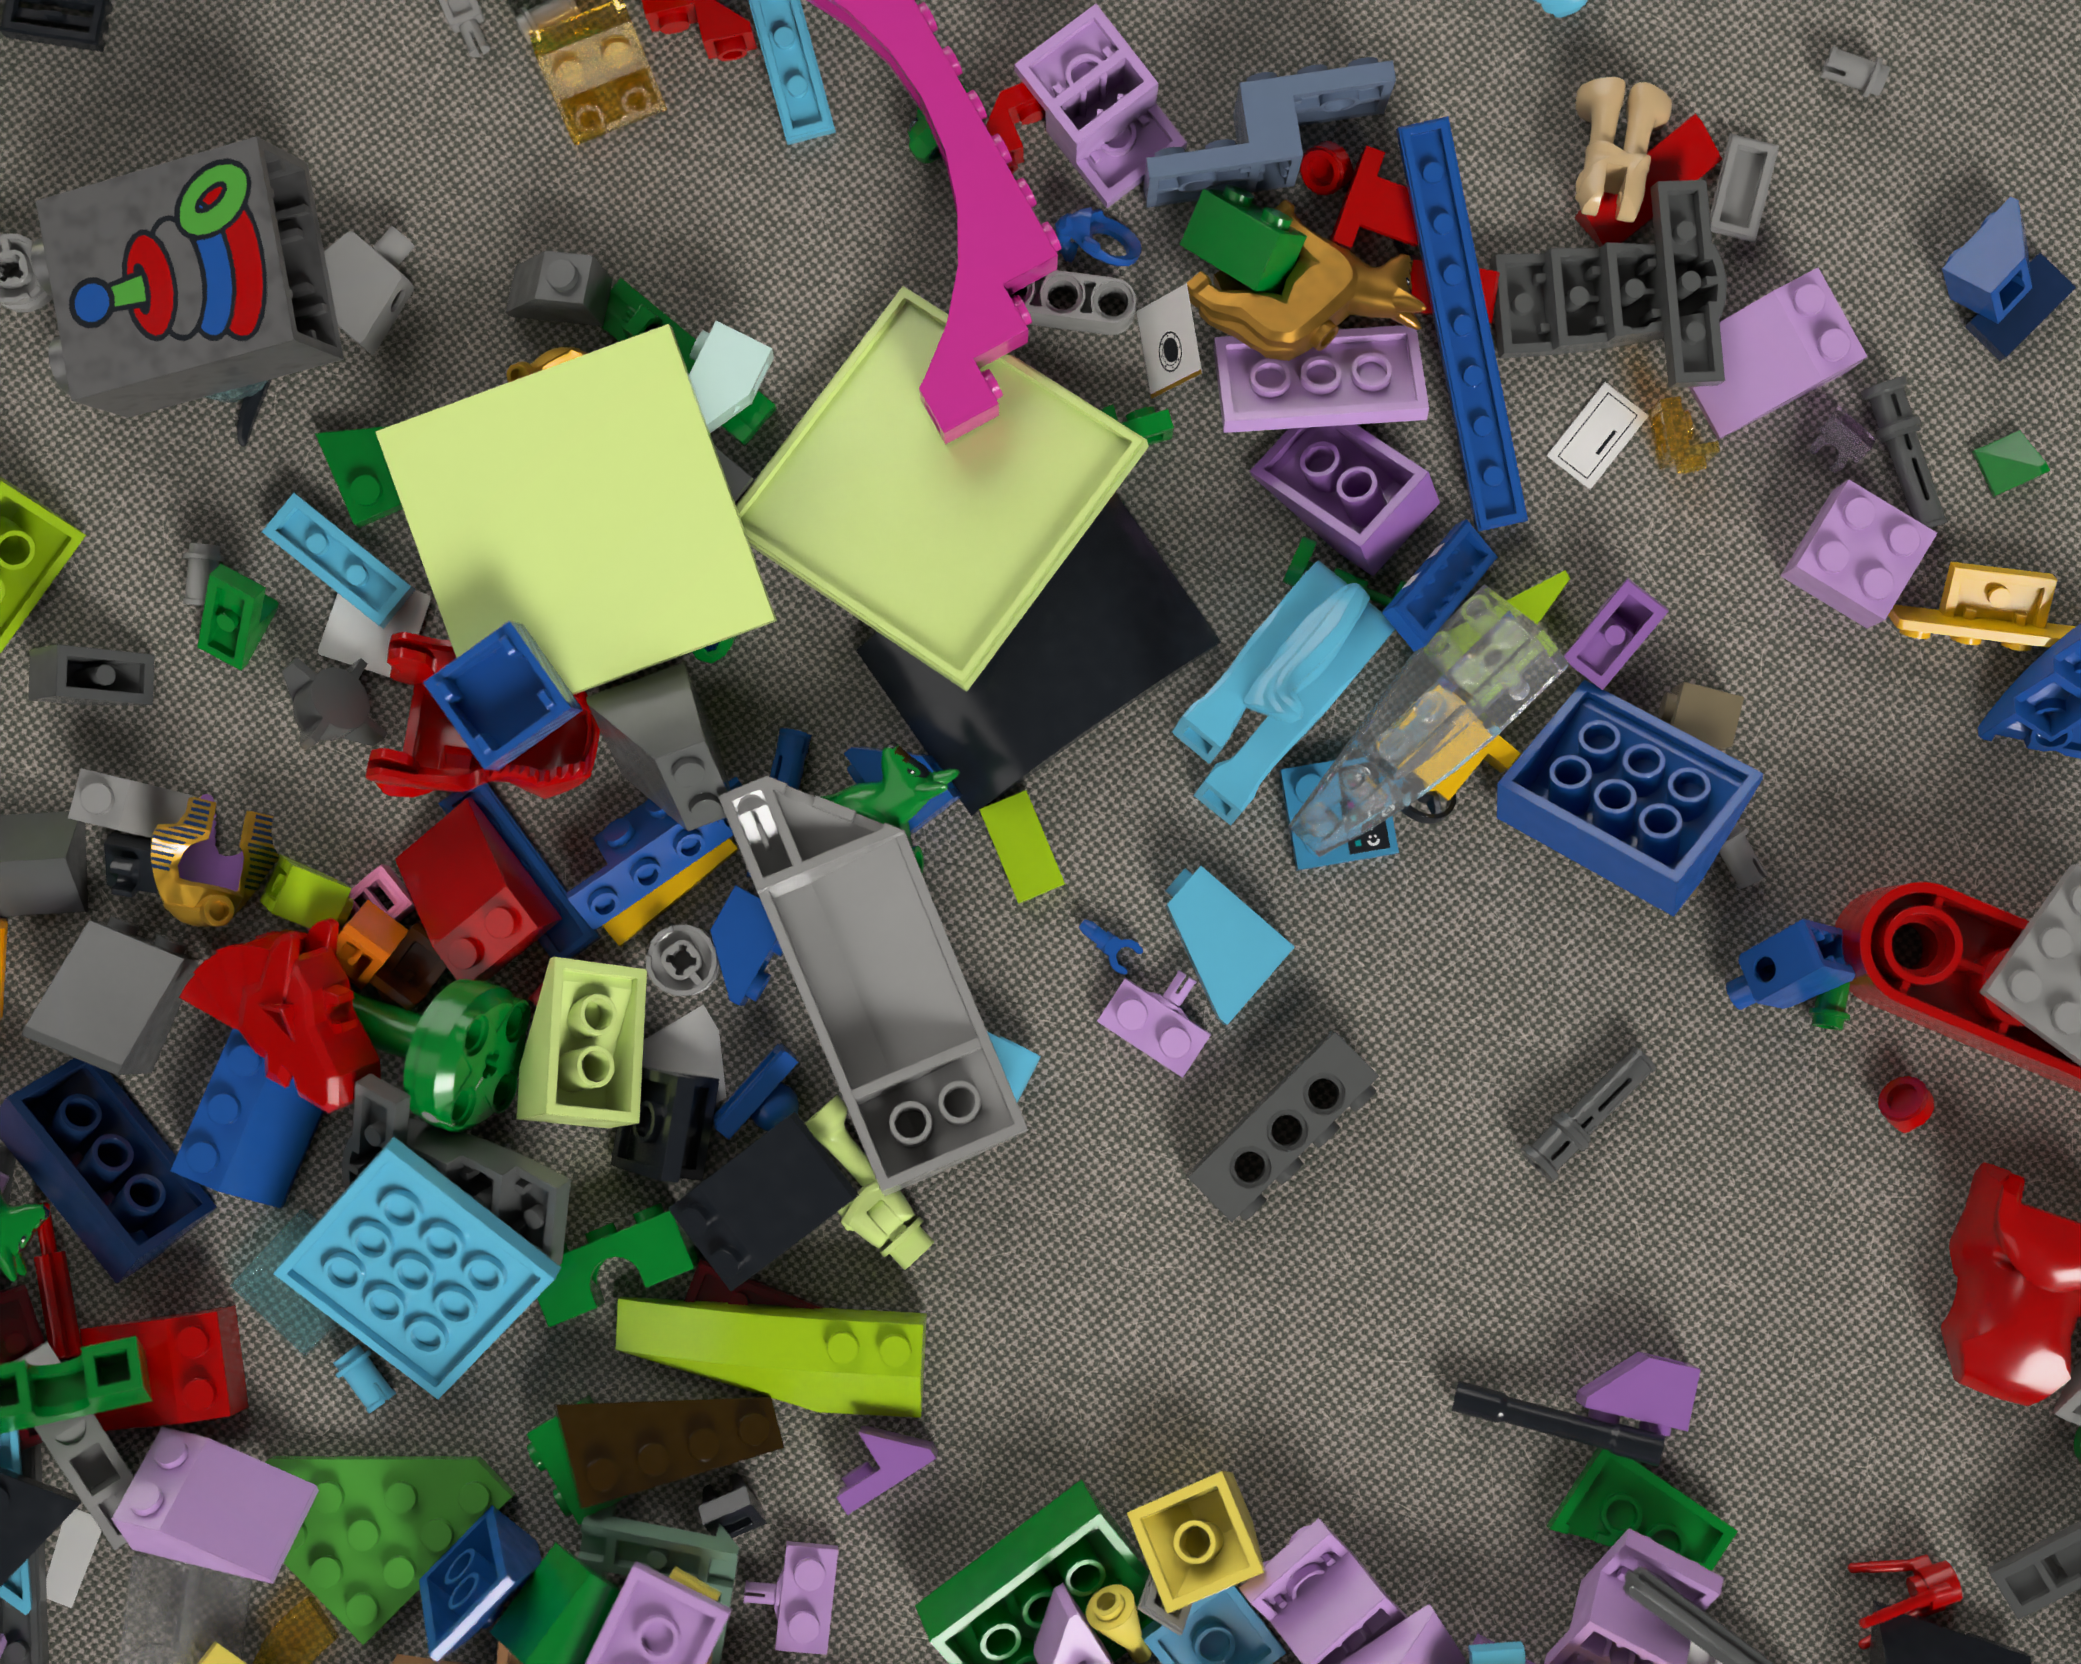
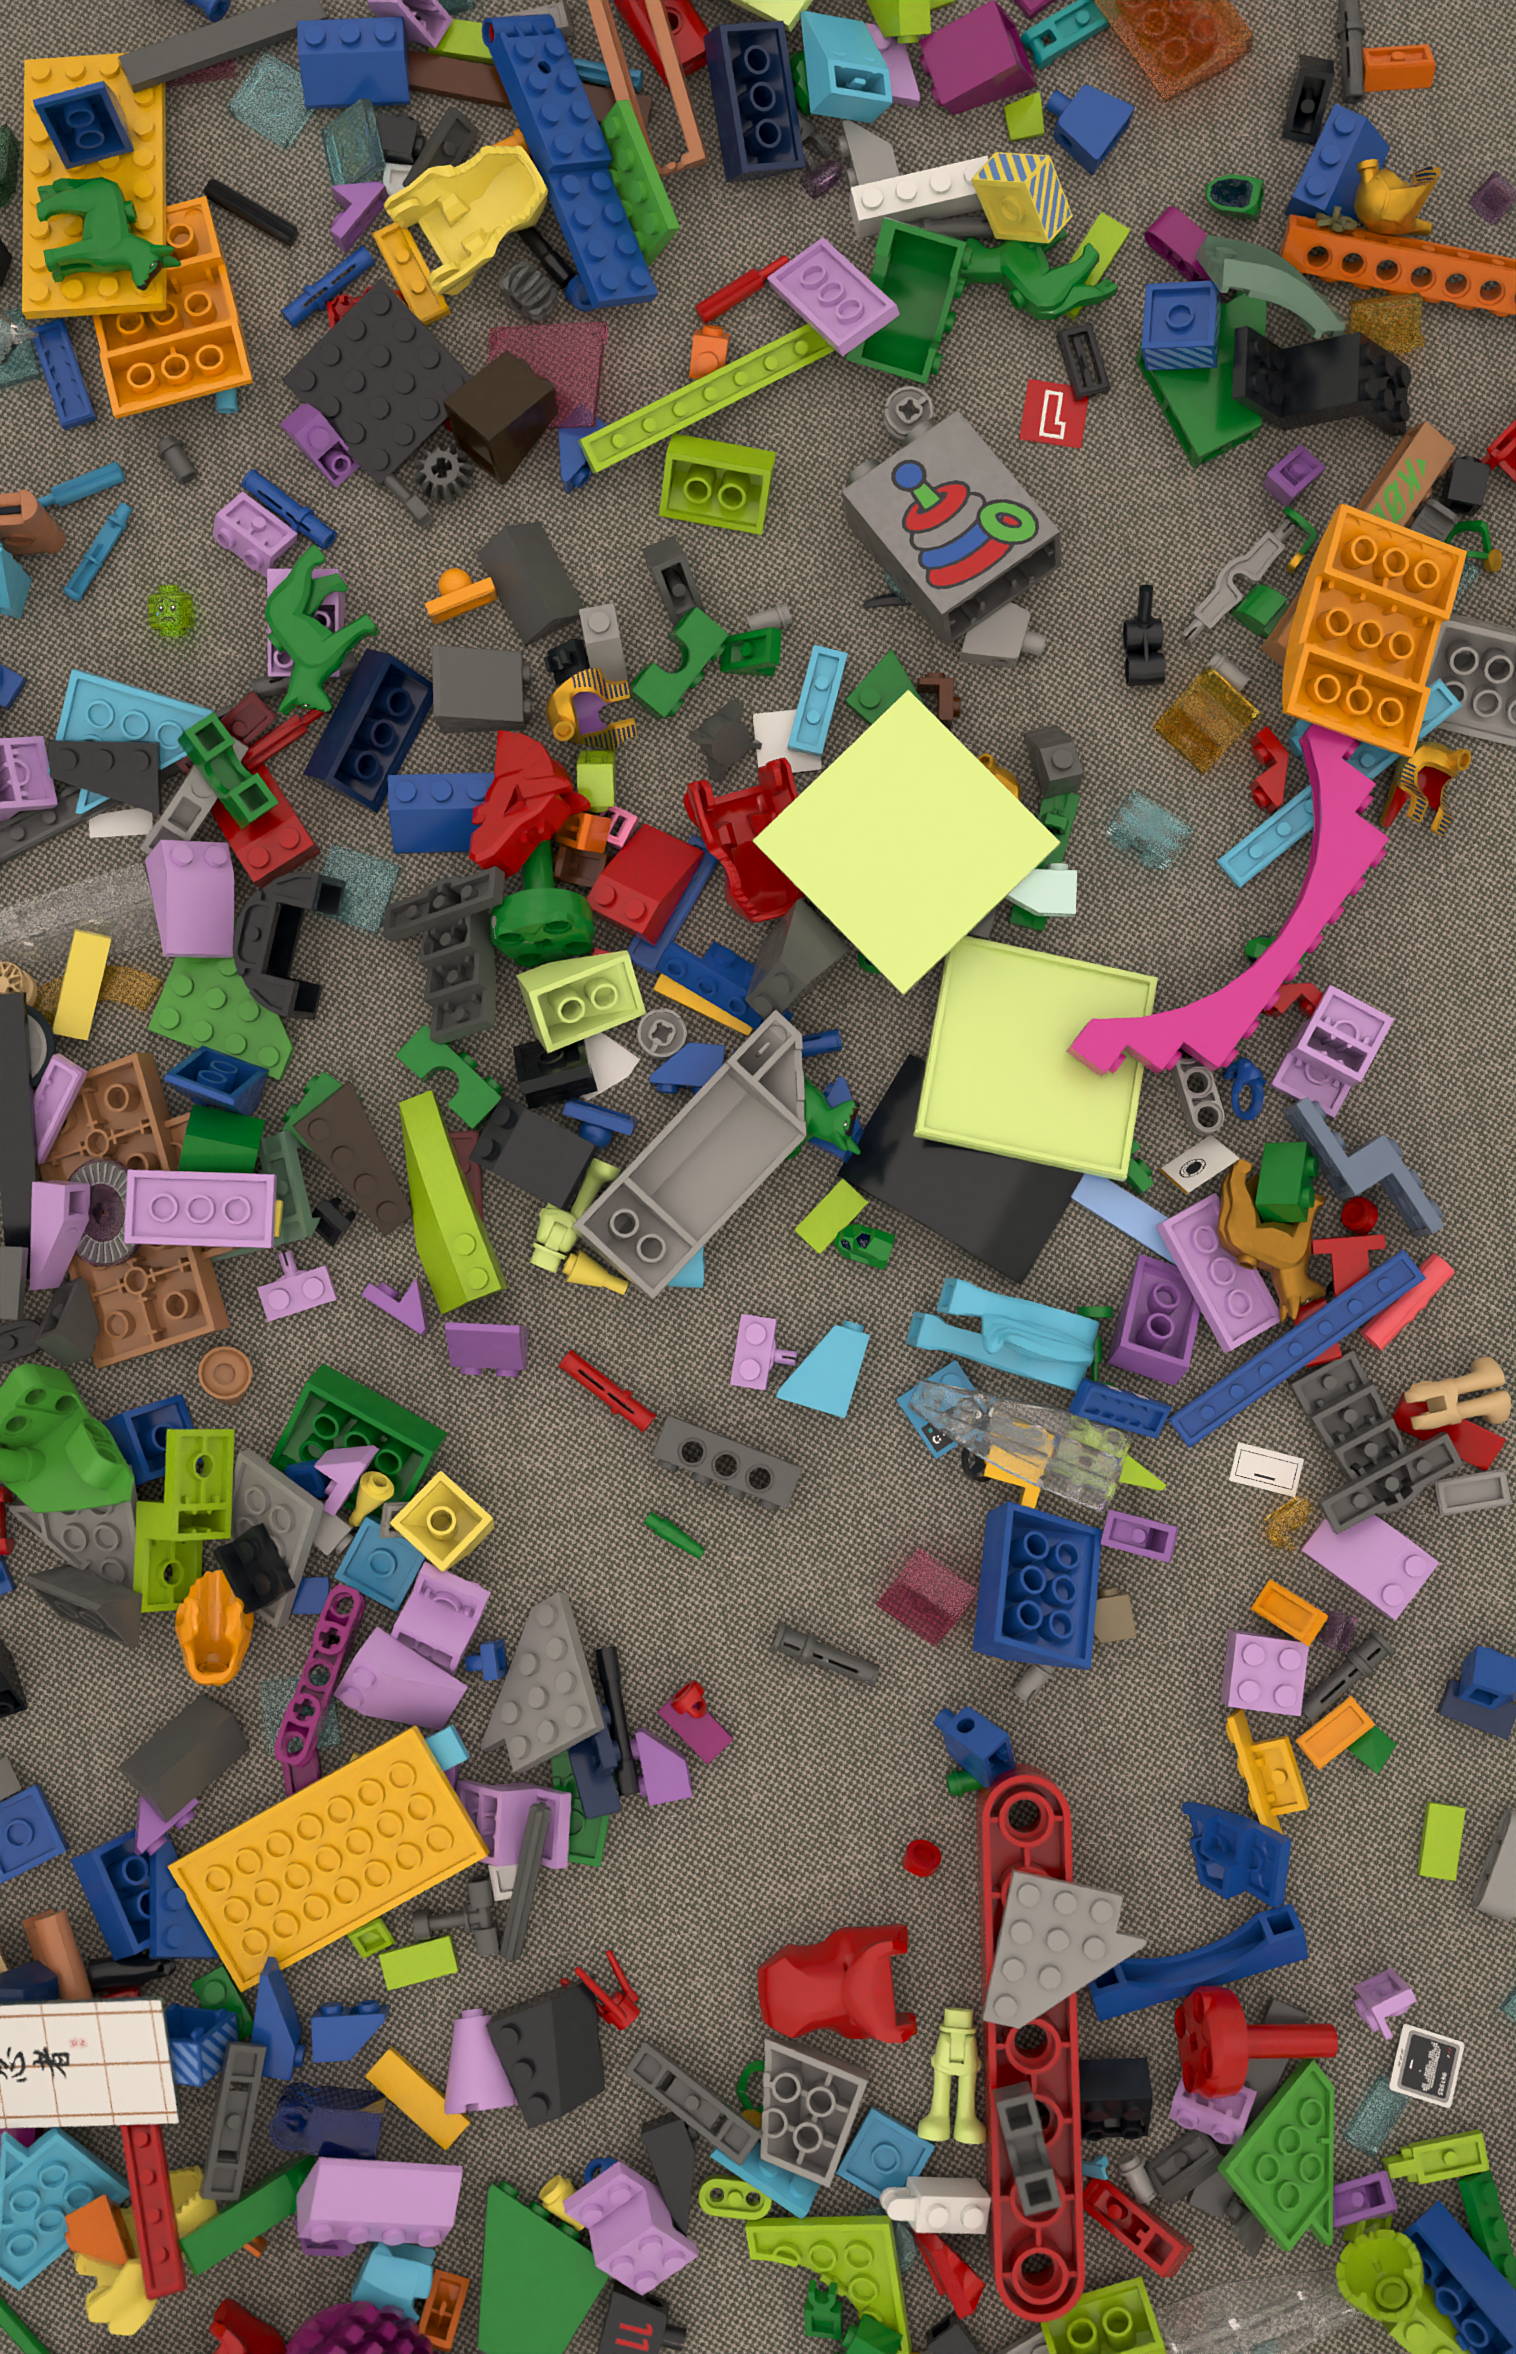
camera: 60 degrees right, 0 degrees up
(107, 88) = (1053, 415): none -> red sticker
(187, 679) = (699, 642): none -> green arch
(311, 1427) = (269, 935): none -> black cylinder
(364, 1378) = (312, 953): medium azure pin -> none
(389, 394) = (947, 704): none -> reddish brown bracket
(417, 1269) = (395, 956): medium azure plate -> none
(455, 108) = (1141, 643): none -> black beam
(503, 696) = (777, 846): blue container -> none
(708, 210) = (1148, 831): none -> clear light blue brick
(948, 1201) = (586, 1271): none -> light yellow cone
(991, 1376) = (487, 1346): none -> medium lavender slope
(1066, 1271) = (639, 1418): none -> red pin
(1080, 819) = (865, 1245): none -> green rock
(1108, 943) = (794, 1299): blue piece -> none
(1187, 467) = (1122, 1211): none -> light blue tile
(1346, 1238) = (671, 1533): none -> green animal
(1403, 1556) = (489, 1659): none -> blue tile
(1480, 1499) = (547, 1690): none -> light grey wing
(1482, 195) = (1391, 1320): none -> coral axle
(1568, 1317) = (687, 1697): none -> red tile
(1570, 943) = (927, 1596): none -> clear pink slope
(1571, 1476) = (592, 1766): none -> dark blue bracket
(1605, 1321) = (703, 1735): none -> magenta tile
(1797, 487) = (1289, 1612): none -> light orange tile
(1972, 501) = (1334, 1733): none -> light orange tile

